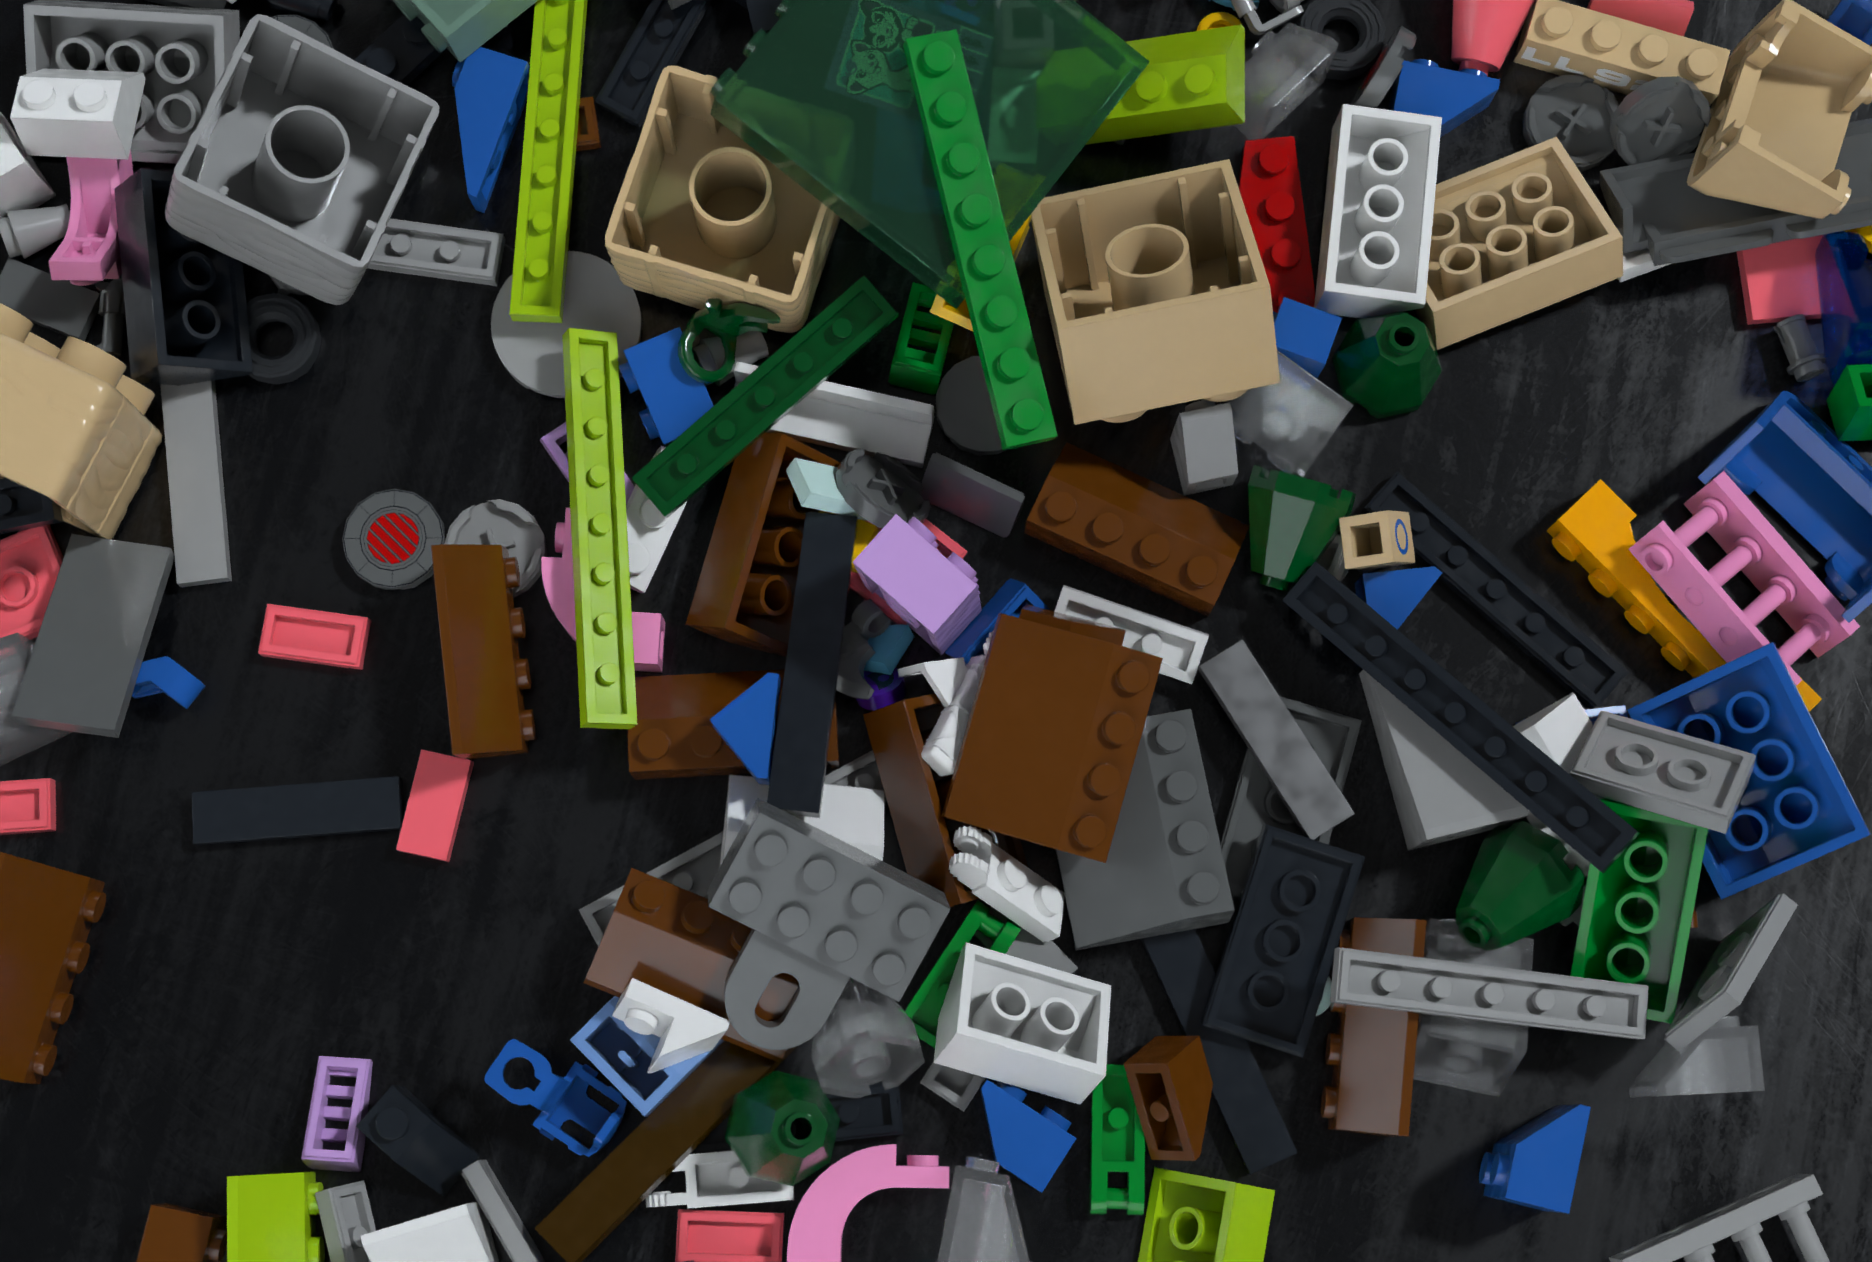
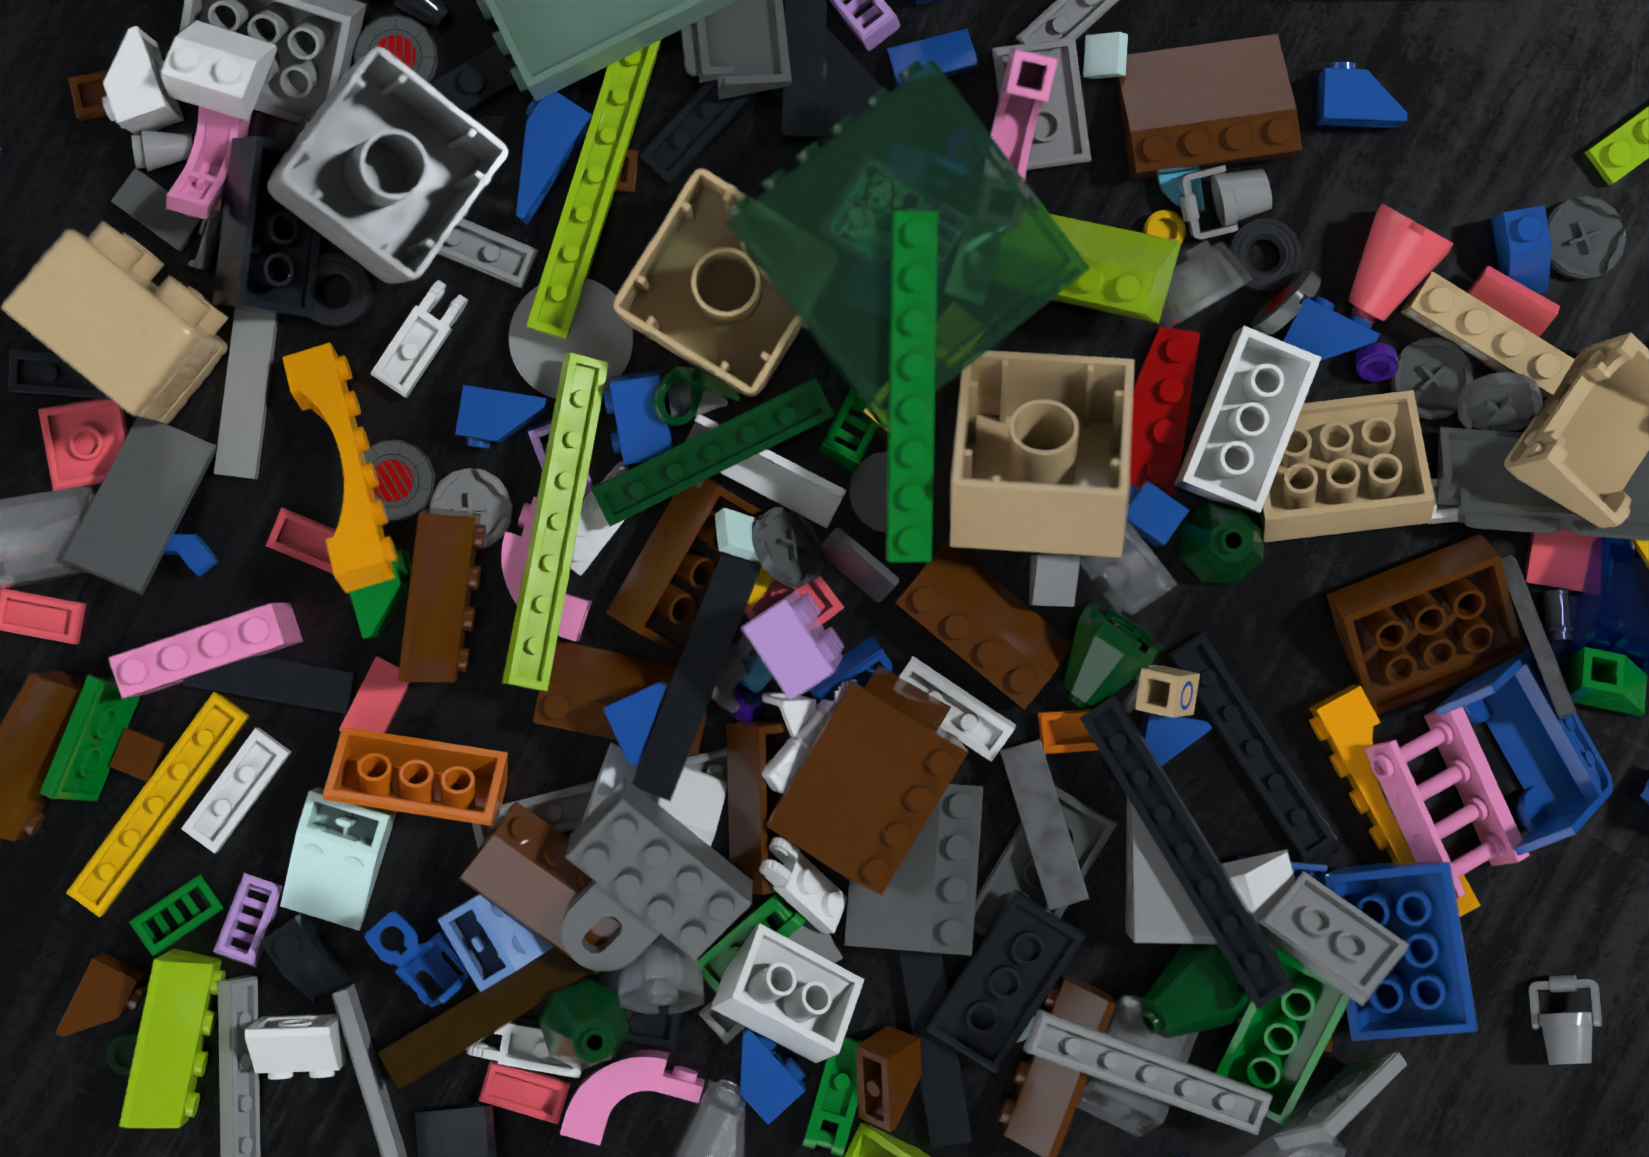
camera: 15 degrees right, 10 degrees up
(93, 932) = (89, 741): none -> green tile
(152, 817) = (205, 648): none -> bright pink arch
(156, 944) = (137, 754): none -> reddish brown tile
(193, 1001) = (157, 804): none -> yellow tile
(217, 1133) = (148, 938): none -> green slope
(286, 955) = (236, 790): none -> white plate
(365, 599) = (359, 547): none -> light orange arch
(386, 372) = (417, 342): none -> white hinge
(404, 655) = (379, 602): none -> green slope
(428, 1004) = (336, 859): none -> light aqua slope
(499, 429) = (495, 415): none -> blue slope
(504, 869) = (417, 776): none -> orange slope
(682, 1027) = (523, 933): white slope -> none
(1272, 629) = (1064, 731): none -> orange tile
(1504, 117) = (1376, 362): none -> dark purple tile
(1655, 393) = (1427, 623): none -> reddish brown slope
(1788, 372) = (1538, 638): none -> flat silver tile

